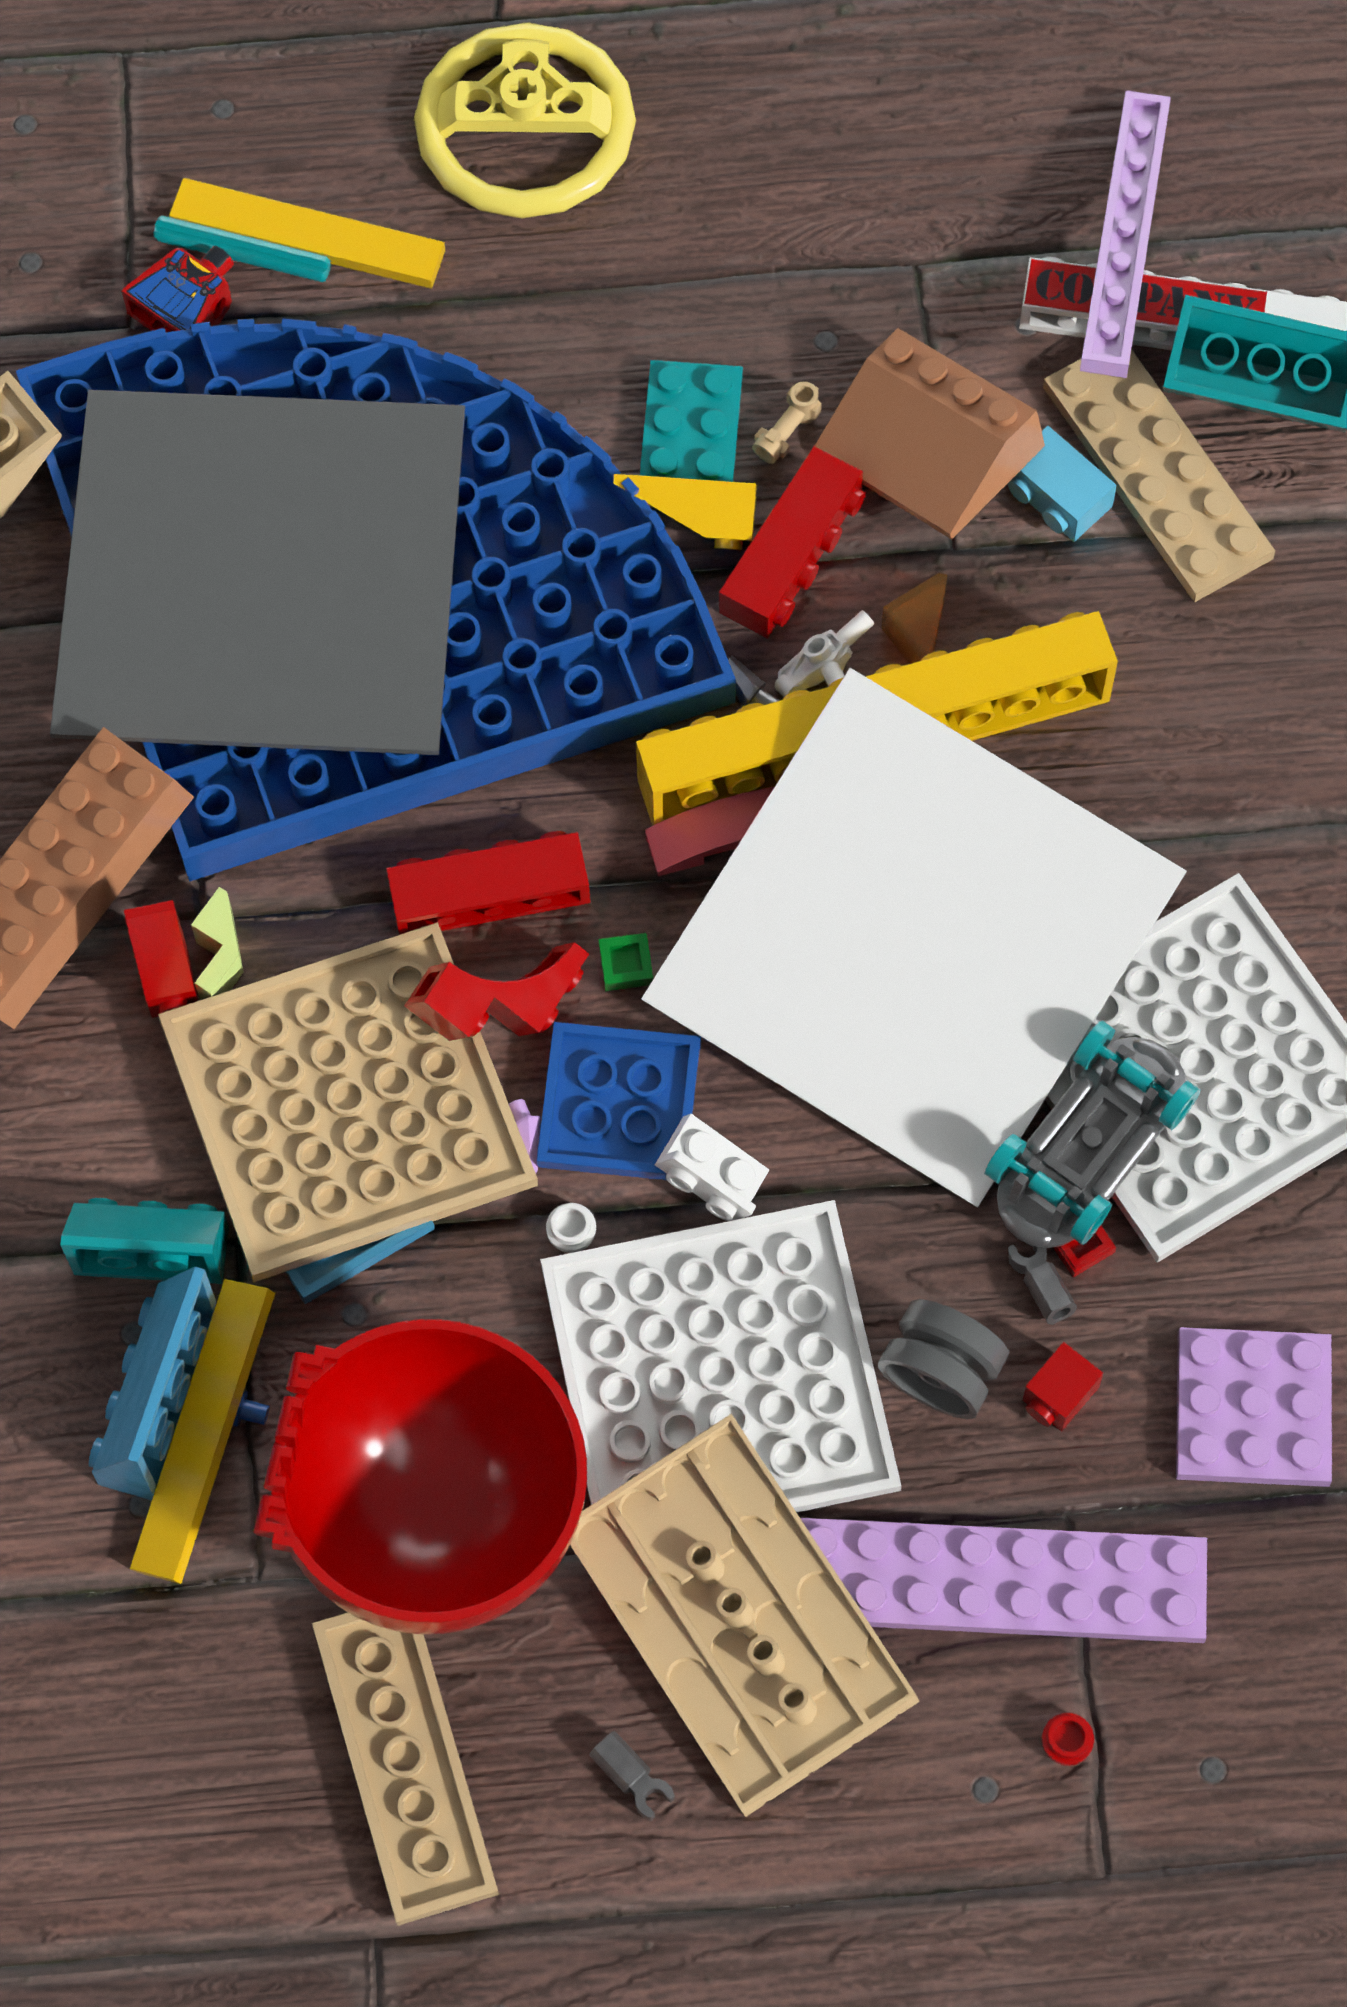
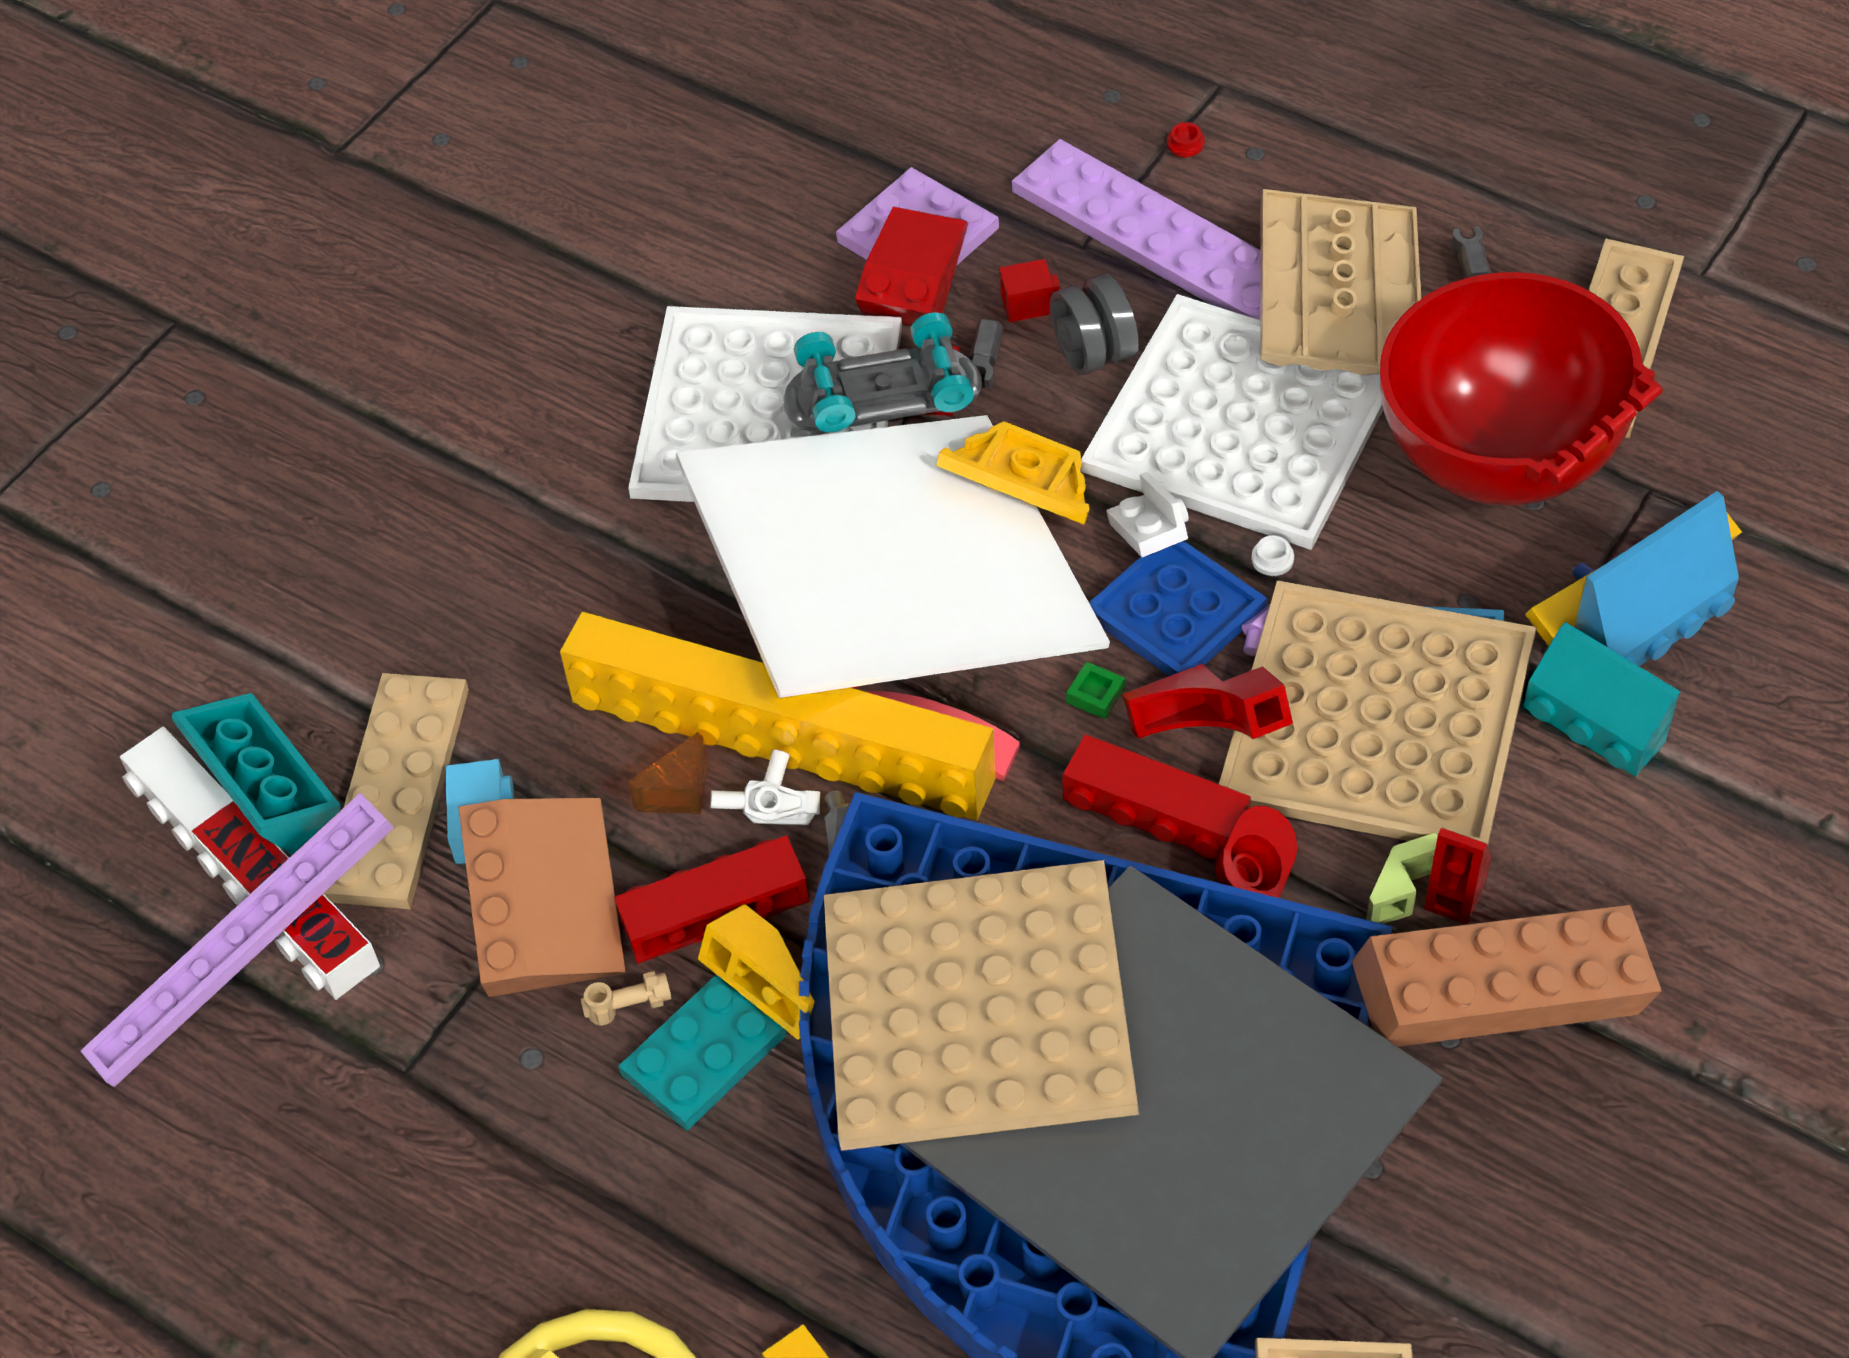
camera: 140 degrees left, 15 degrees down
(351, 871) = (1258, 852): none -> red piece
(469, 545) = (976, 1006): none -> tan plate
(875, 1141) = (1024, 468): none -> yellow wing
(1195, 1313) = (911, 265): none -> red slope

